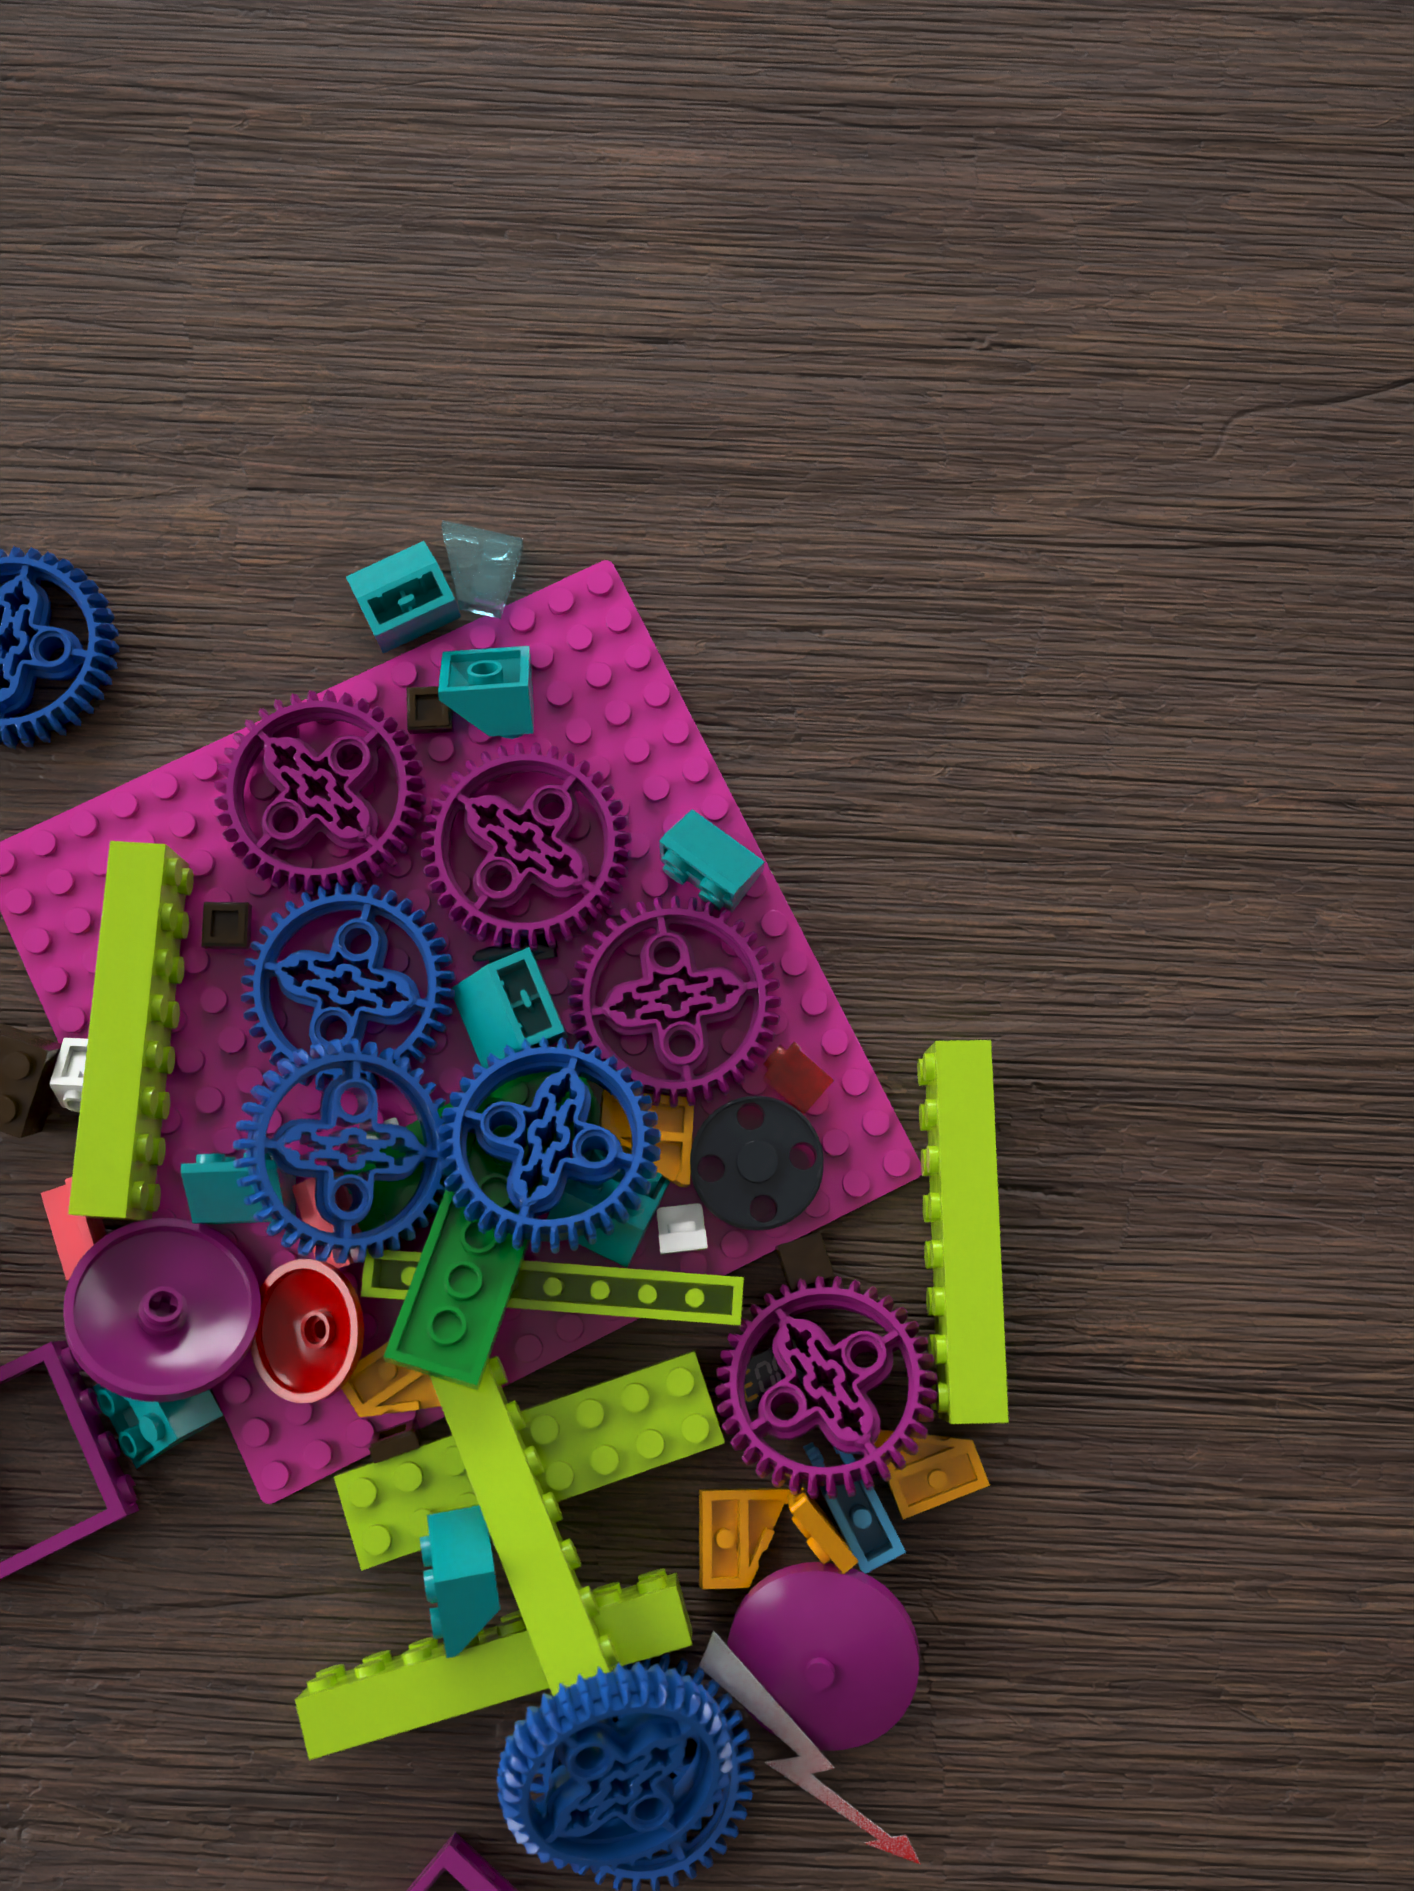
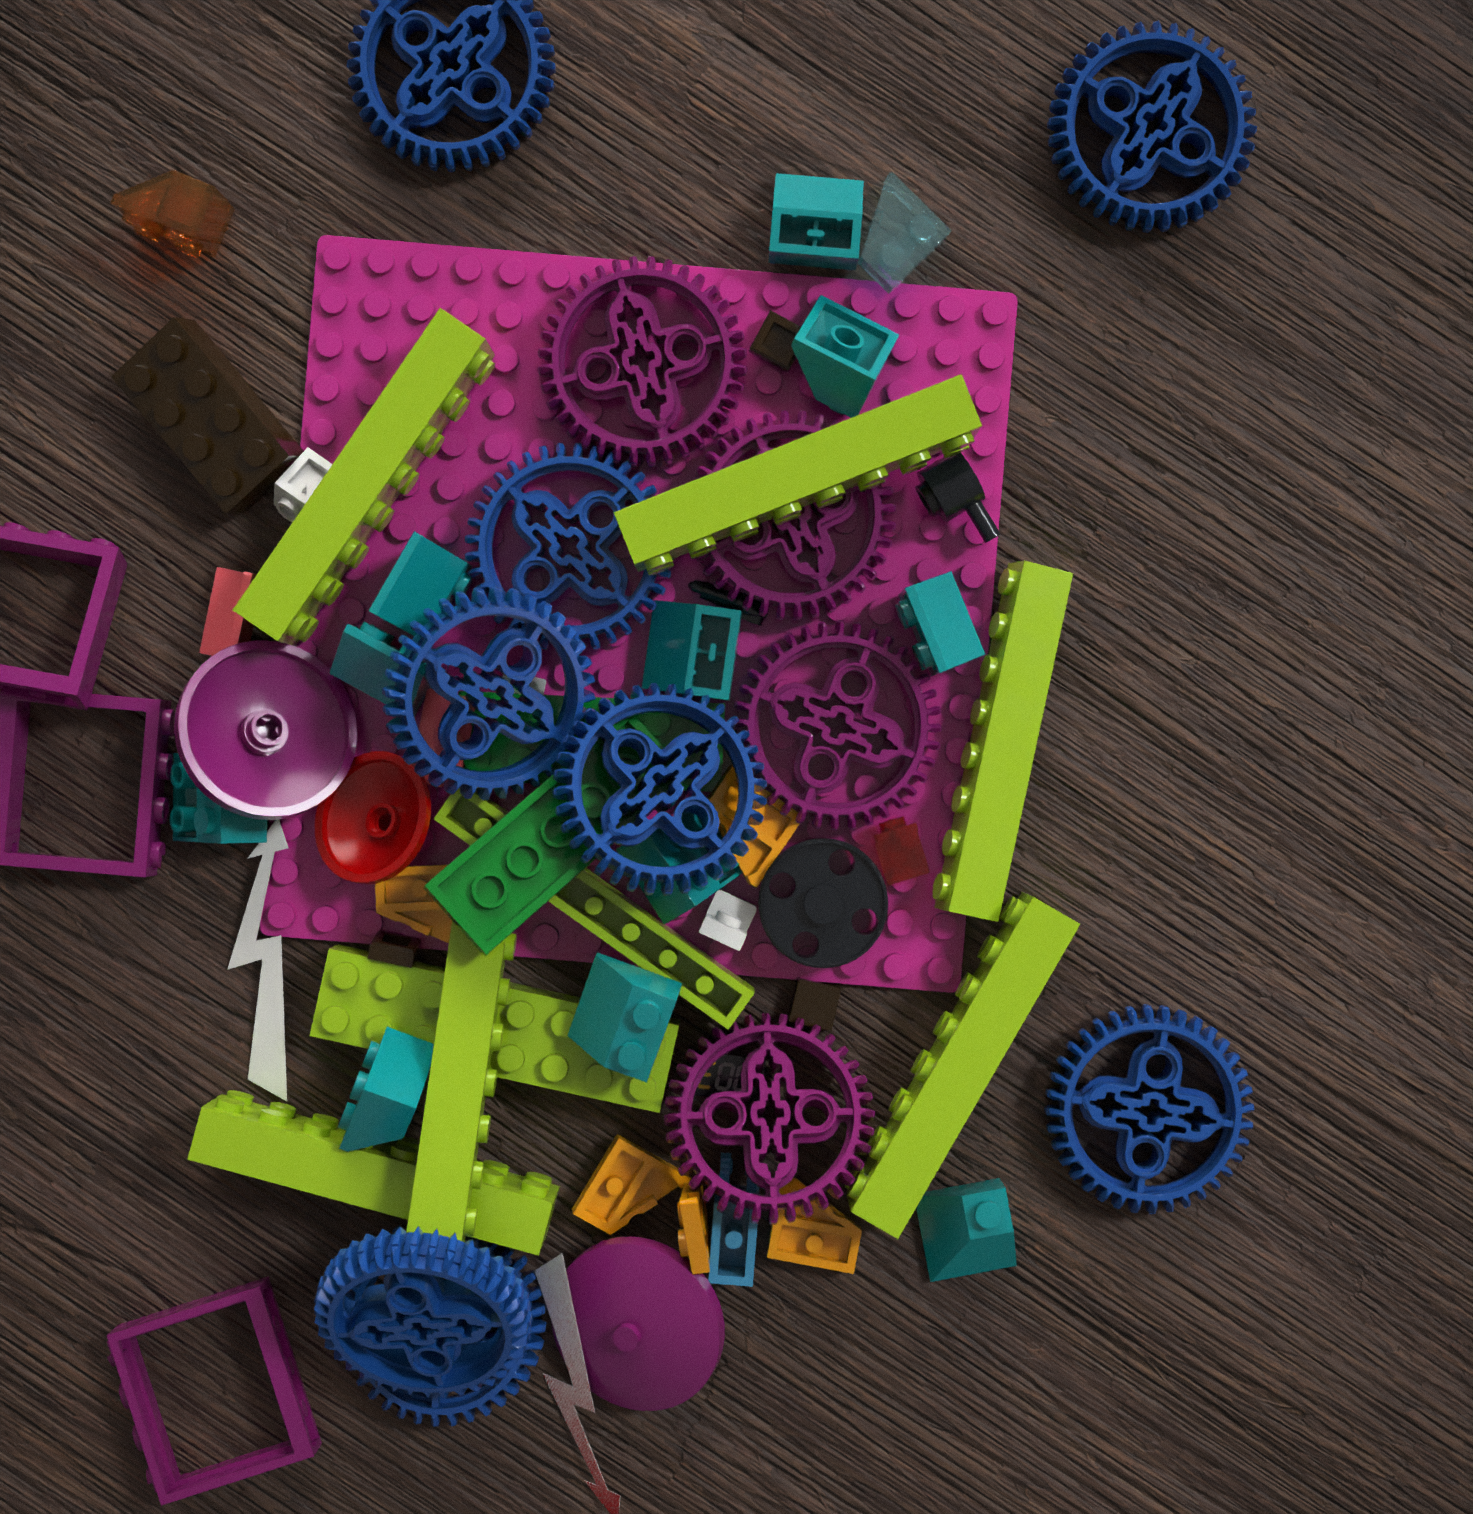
camera: 35 degrees right, 10 degrees up
(221, 1089) = (419, 581): none -> teal slope
(226, 925) = (497, 429): dark brown tile -> none
(330, 1605) = (268, 1053): none -> white sticker
(508, 801) = (799, 474): none -> lime brick
(637, 300) = (1195, 57): none -> blue gear
(637, 1369) = (623, 1015): none -> teal slope
(652, 740) = (952, 488): none -> black piece
(826, 931) = (1002, 740): none -> lime brick
(1065, 1382) = (966, 1229): none -> teal slope
(1153, 1210) = (1129, 1138): none -> blue gear

